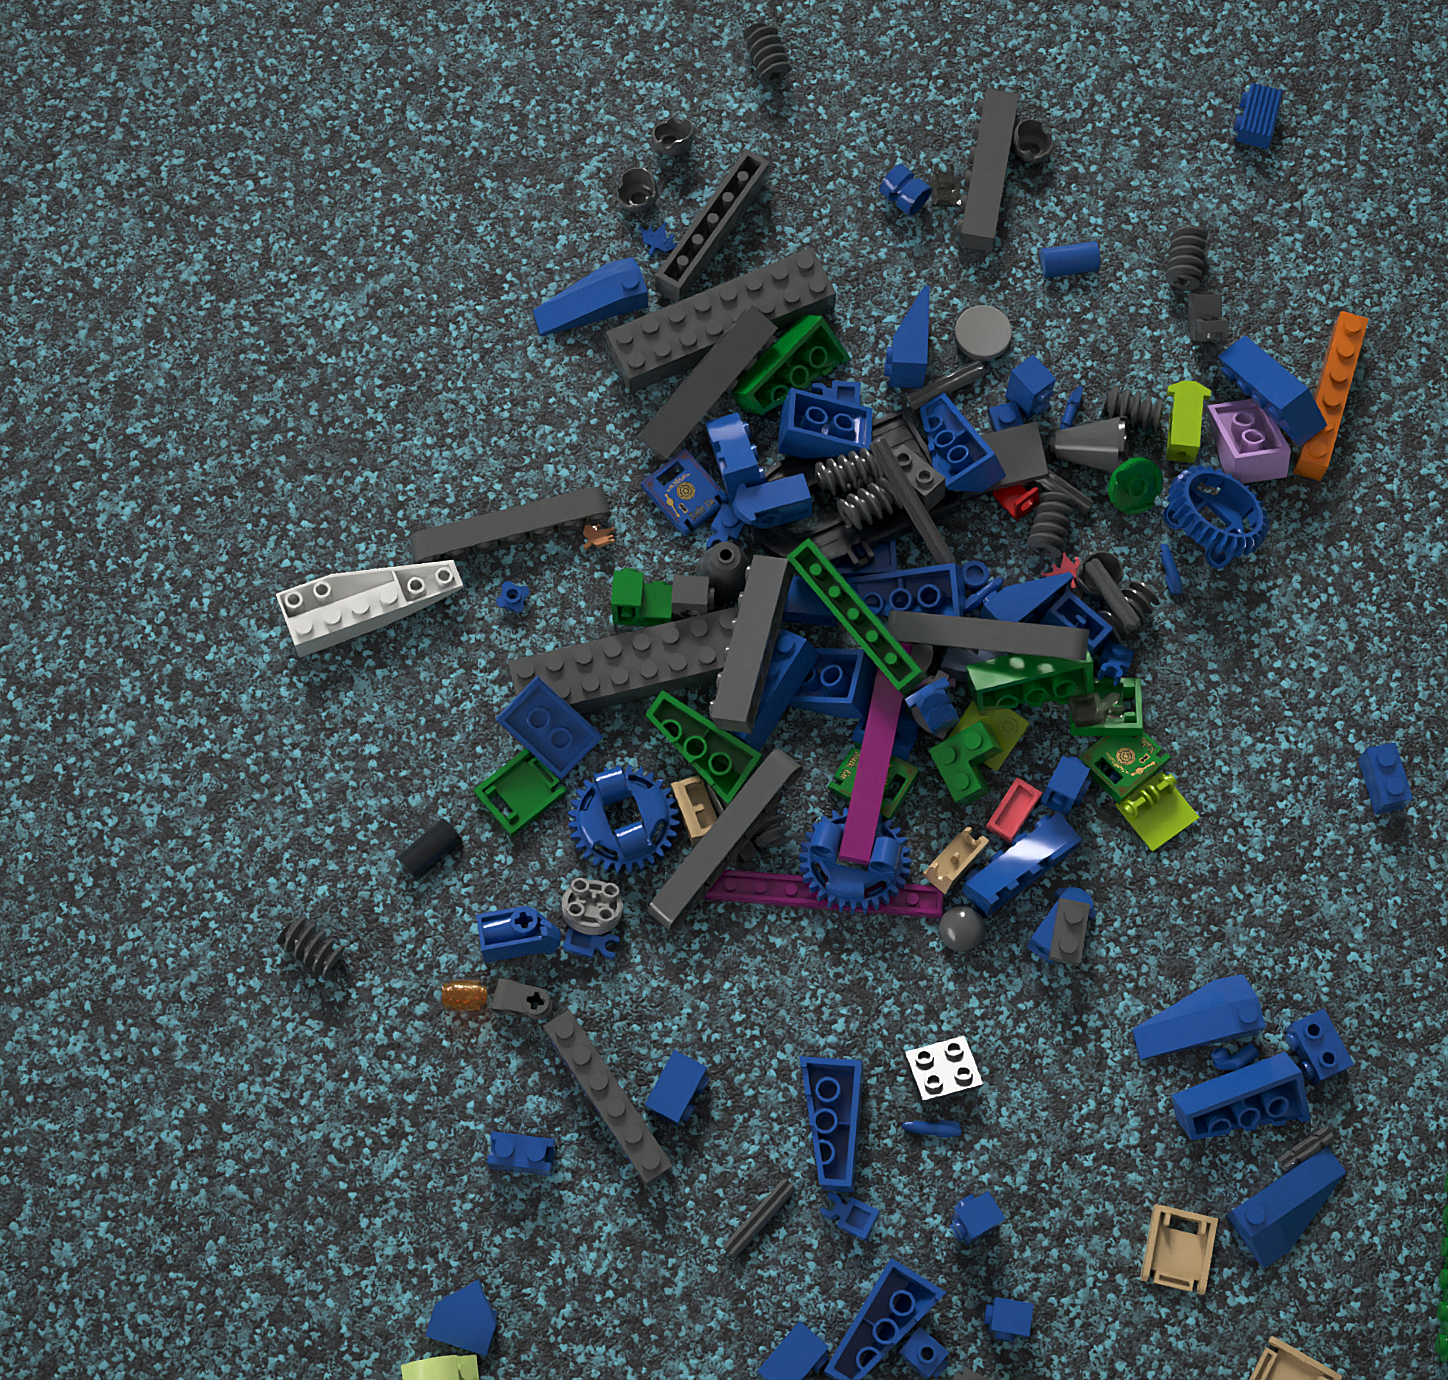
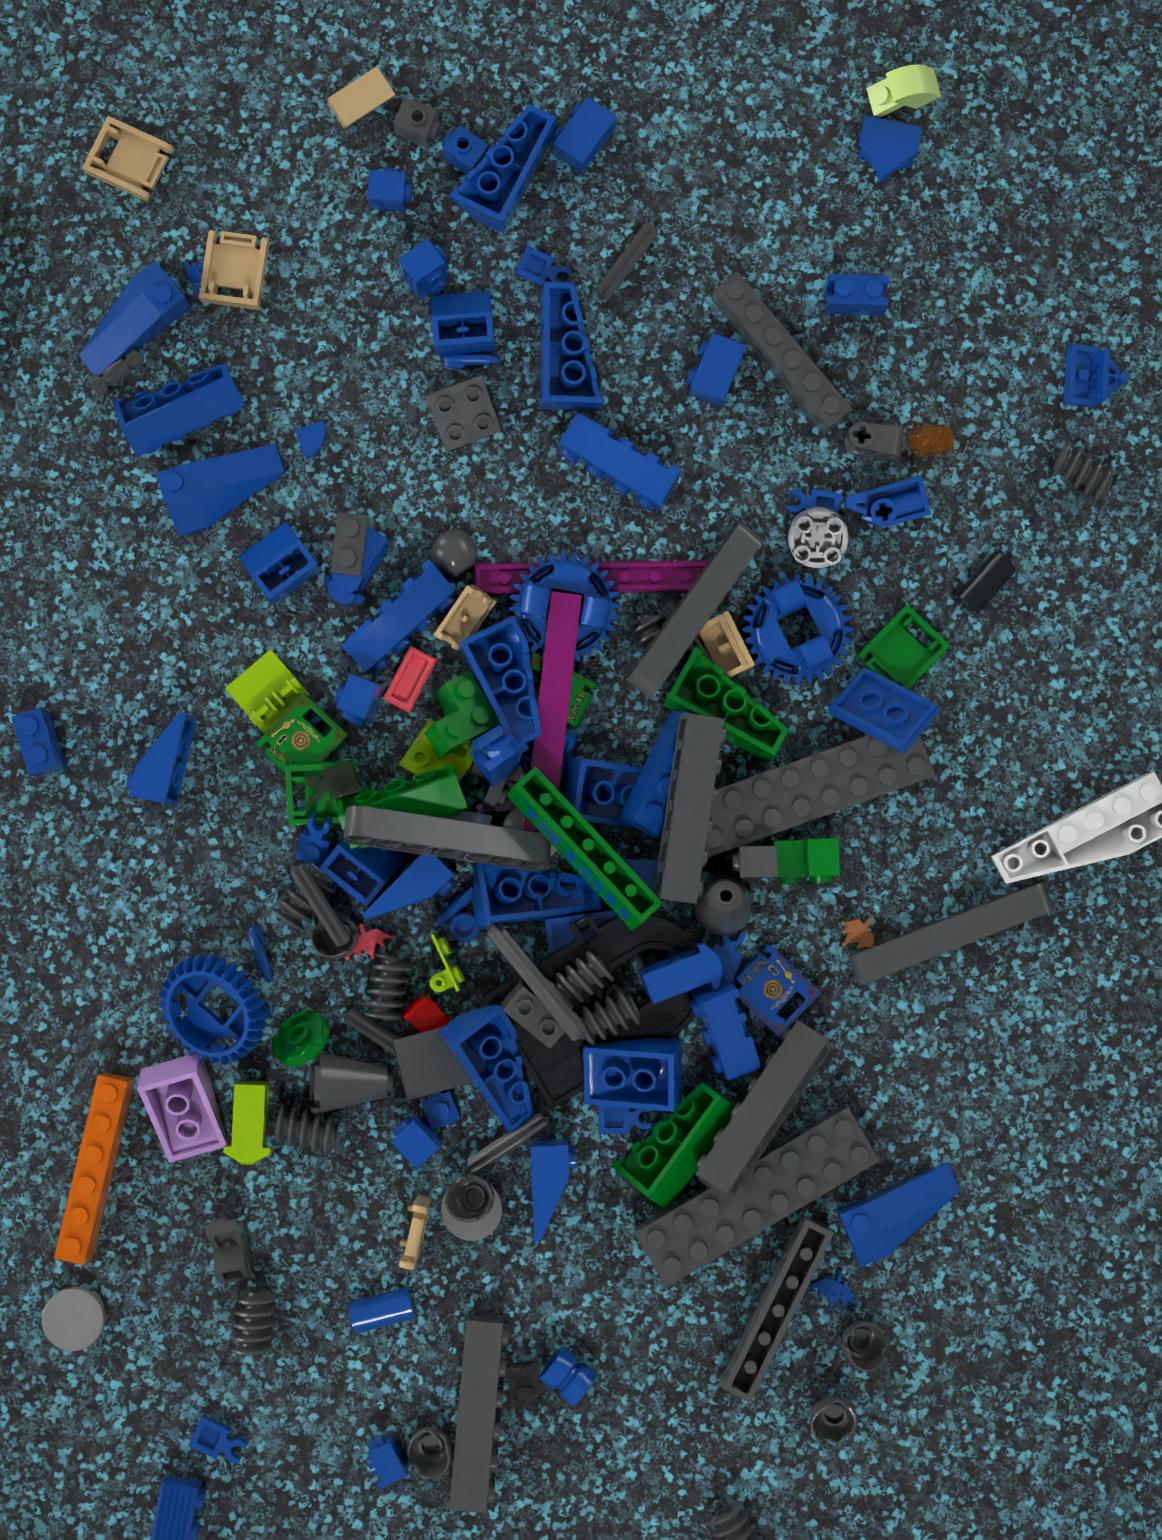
camera: 175 degrees right, 15 degrees up
(288, 1049) = (1090, 375): none -> blue slope
(515, 605) = (929, 860): blue plate -> none
(787, 1001) = (619, 463): none -> blue wedge
(920, 794) = (505, 676): none -> blue wedge
(939, 1164) = (462, 323): none -> blue slope
(985, 333) = (469, 1198): none -> dark grey hair
(992, 529) = (452, 975): none -> lime hinge
(1036, 311) = (421, 1209): none -> tan container
(1071, 139) = (386, 1460): none -> blue brick
(1071, 408) = (370, 1134): blue piece -> none
(1103, 1060) = (311, 438): none -> blue tile
(1141, 931) = (279, 563): none -> blue slope
(1221, 1244) = (194, 275): none -> blue piece
(1224, 171) = (213, 1437): none -> blue plate
(1236, 1061) = (186, 447): blue arm -> none
(1266, 728) = (162, 768): none -> blue slope
(1273, 389) = (159, 1160): blue wedge -> none
(1318, 1047) = (104, 466): blue brick -> none
(1350, 275) = (73, 1318): none -> light grey tile

